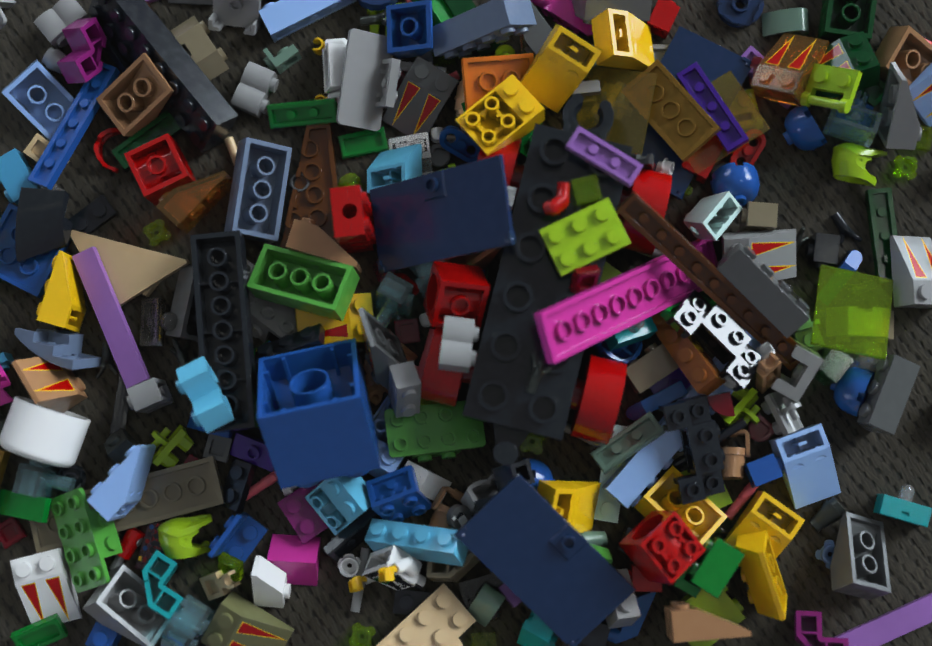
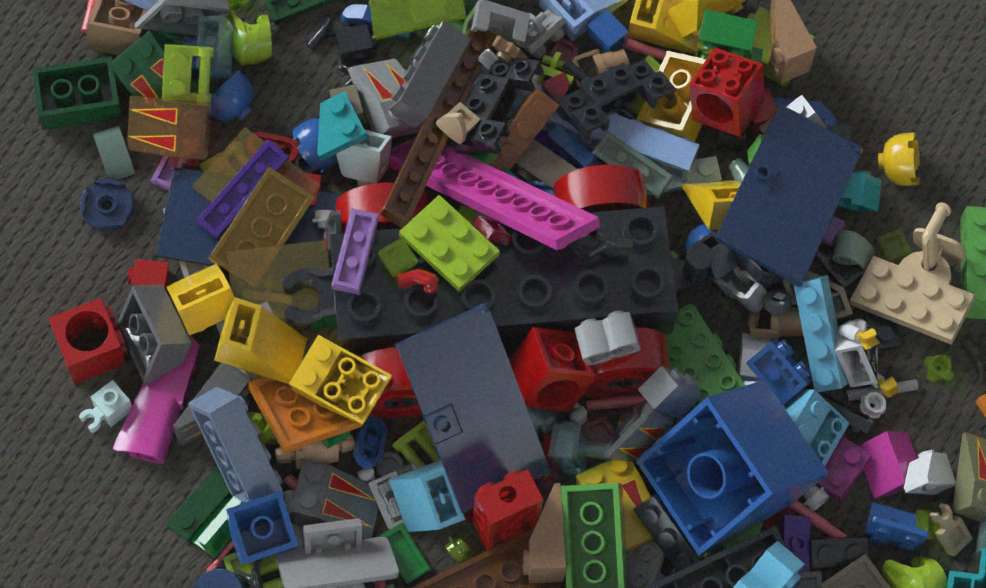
camera: 120 degrees left, 15 degrees down
(705, 296) = (458, 123): none -> tan tile
(739, 198) = (338, 126): none -> teal wing

